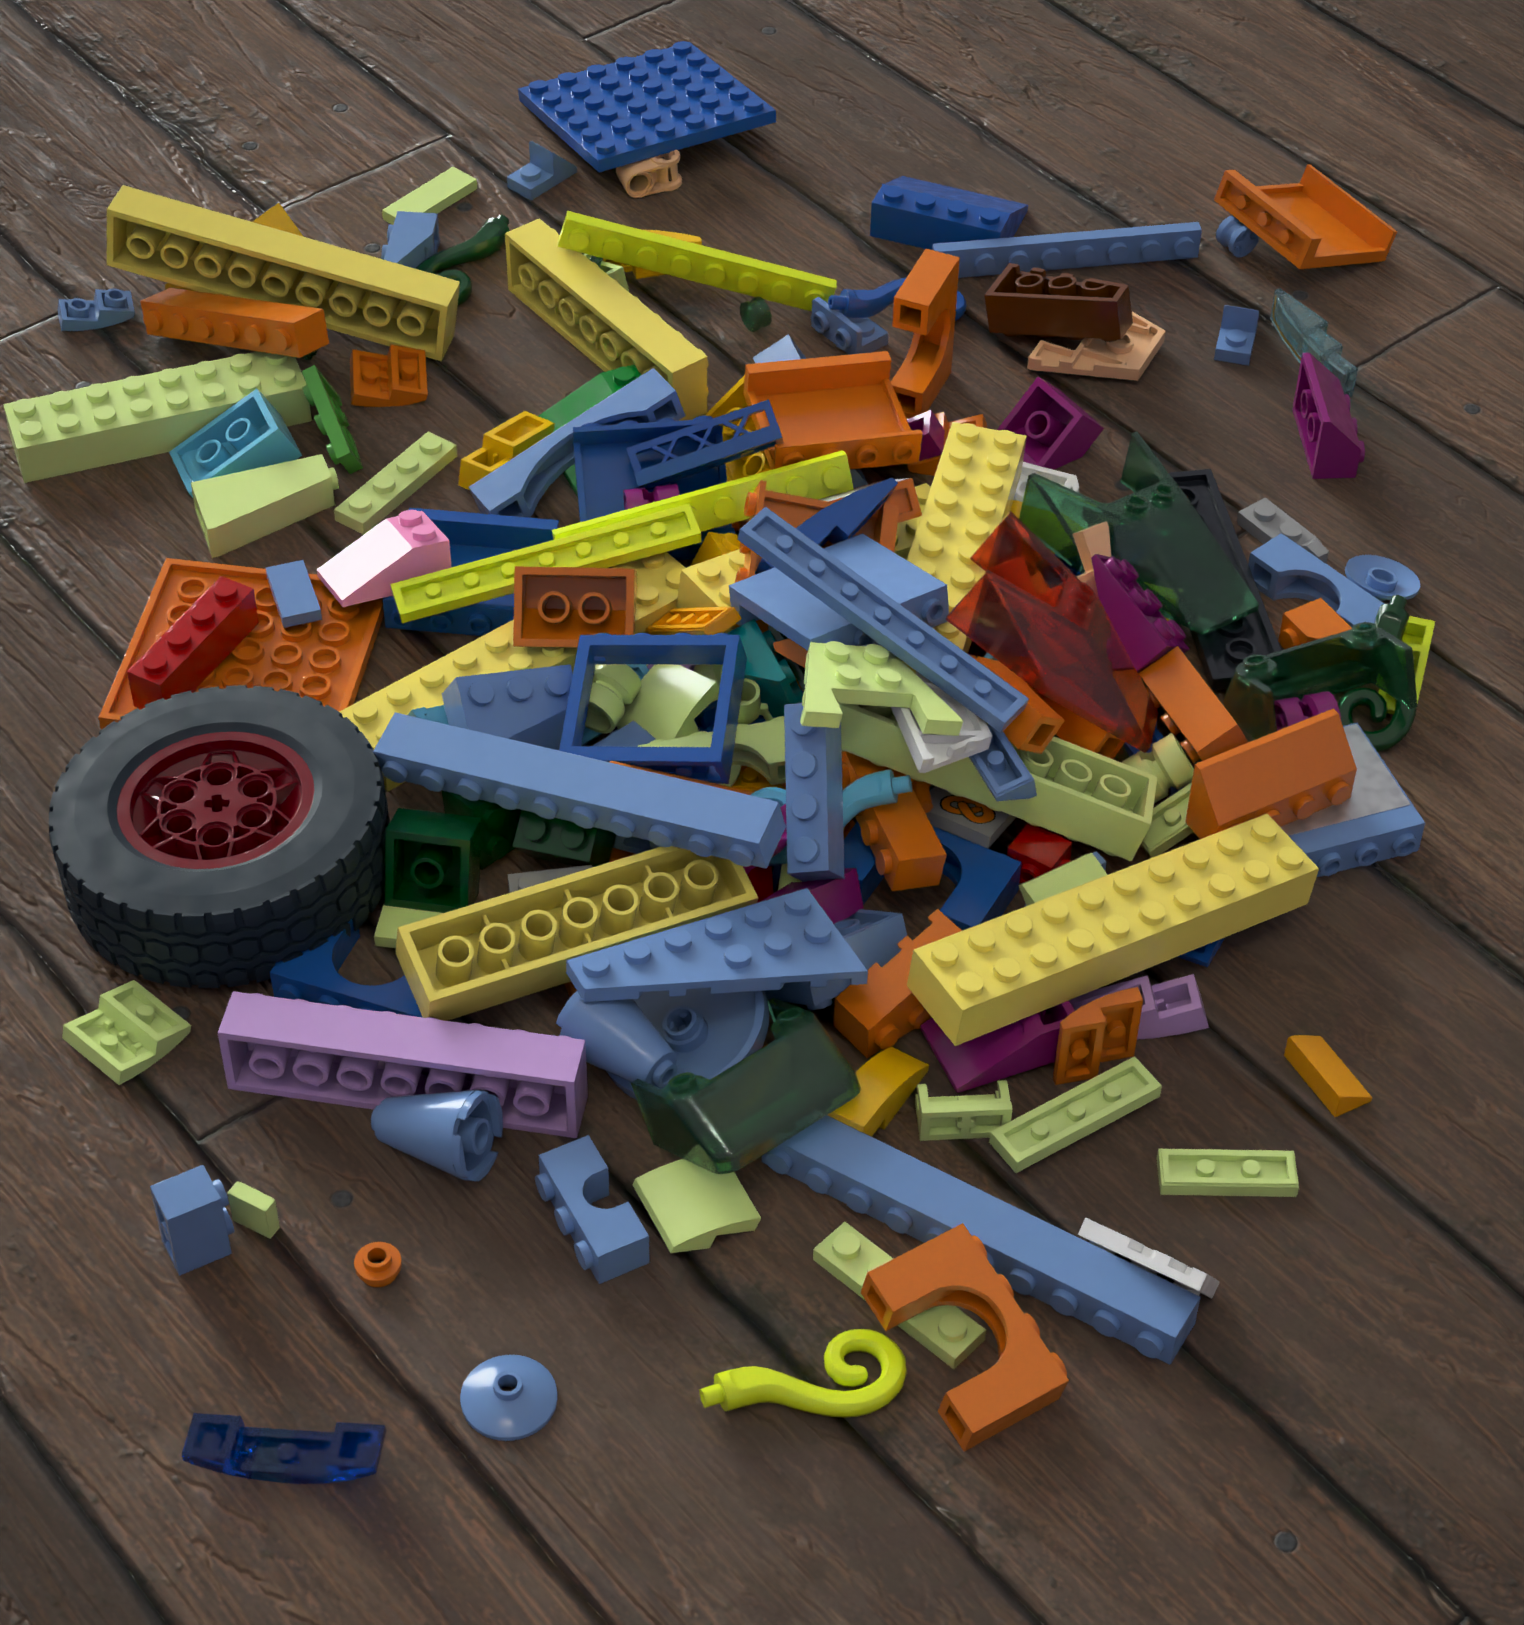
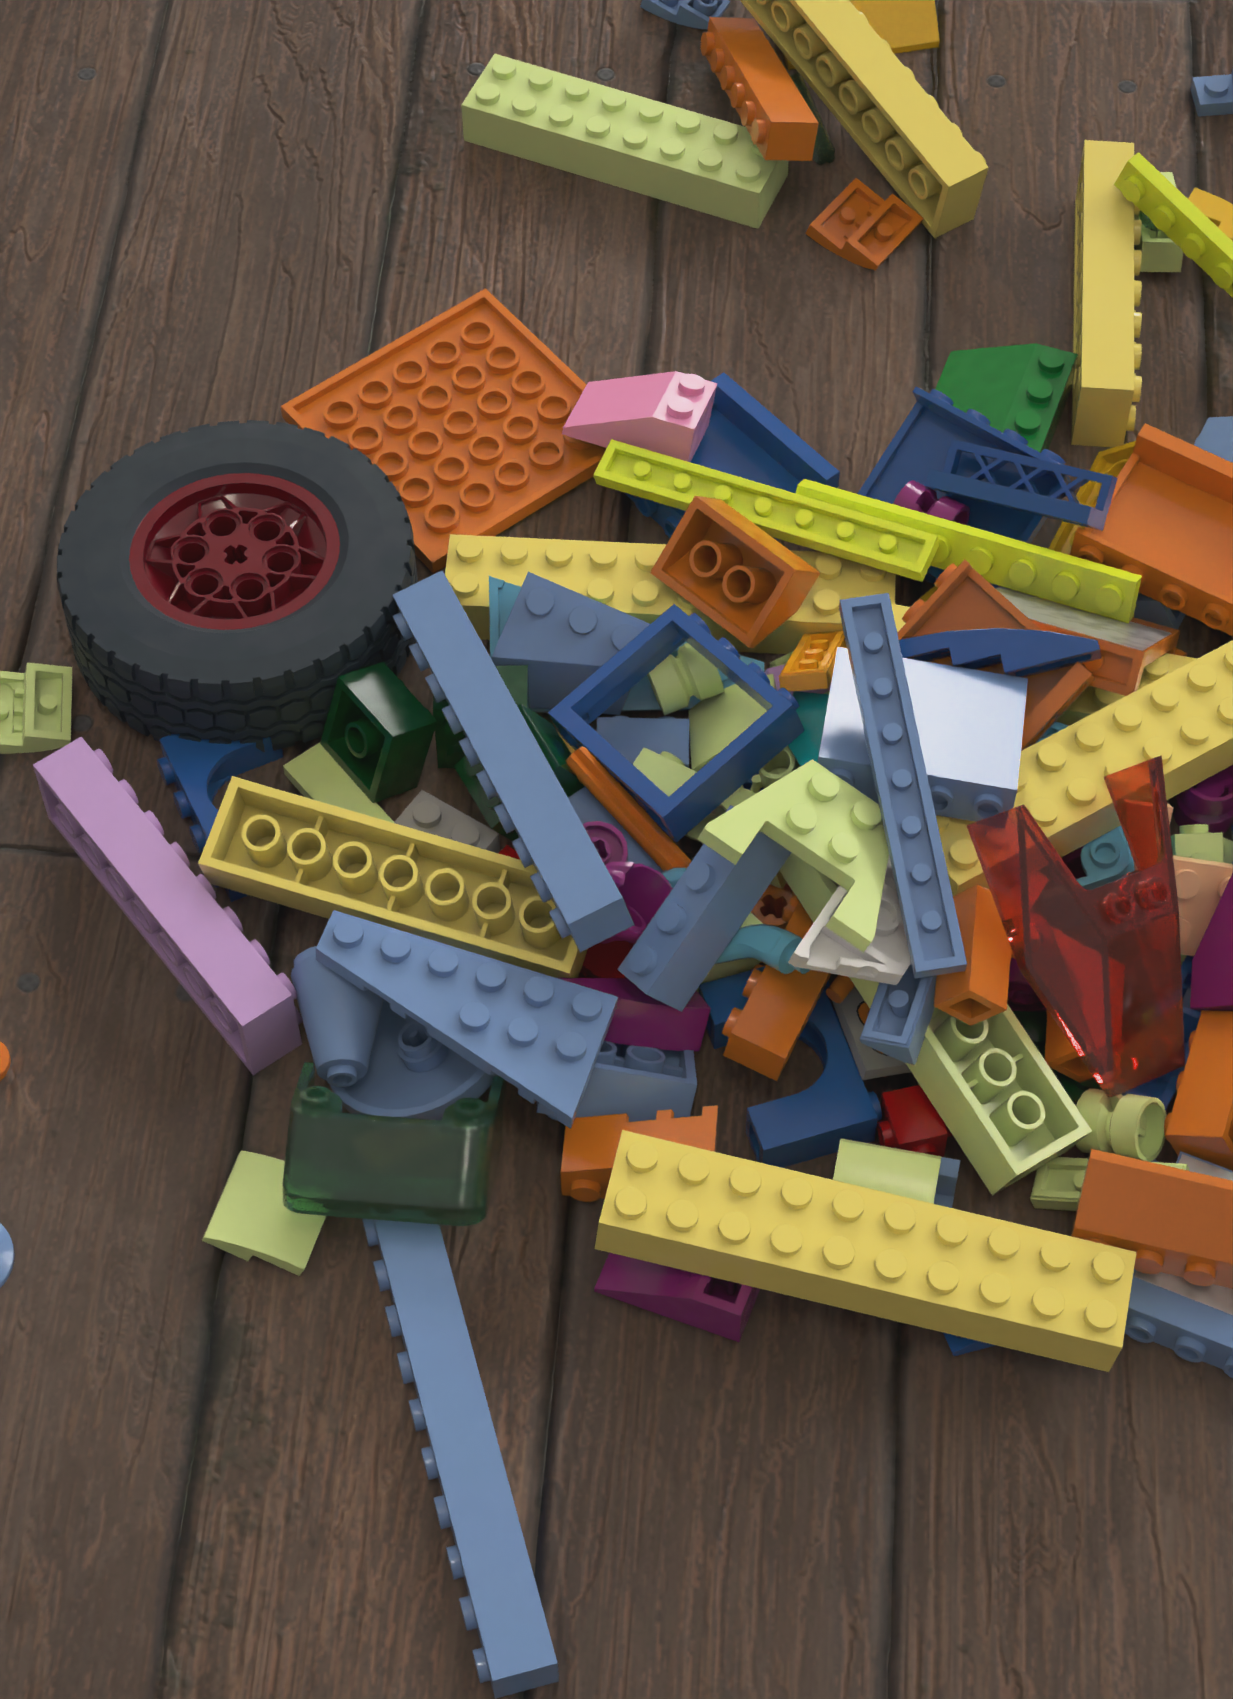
camera: 45 degrees right, 10 degrees up
(195, 643) = (403, 390): red brick -> none
(236, 441) = (656, 217): medium azure slope -> none
(261, 501) = (619, 283): yellowish green slope -> none
(293, 593) = (544, 393): medium blue tile -> none
(331, 420) = (759, 236): bright green wing -> none
(395, 483) = (761, 338): yellowish green plate -> none
(412, 238) = (1015, 103): medium blue slope -> none
(434, 194) = (1098, 59): yellowish green tile -> none
(443, 1129) = (141, 989): medium blue cone -> none
(483, 244) = (1068, 136): dark green plant -> none
(502, 445) = (880, 370): yellow slope -> none
(522, 481) = (841, 413): medium blue arch -> none
(604, 1239) = (190, 1112): medium blue arch -> none
(761, 1385) = (137, 1412): neon yellow plant -> none
(885, 1086) = (521, 1236): yellow slope -> none
(940, 1329) = (340, 1435): yellowish green plate -> none
(957, 1273) = (345, 1595): orange arch -> none
(961, 1115) = (574, 1313): yellowish green hinge -> none
(1075, 1114) = (668, 1398): yellowish green plate -> none
(1097, 1034) = (745, 1334): orange slope -> none
(1148, 1259) = (564, 1593): white wing -> none
(1167, 1007) = (838, 1349): lavender slope -> none
(1227, 1172) = (745, 1568): yellowish green tile -> none
(1325, 1074) = (948, 1553): light orange slope -> none

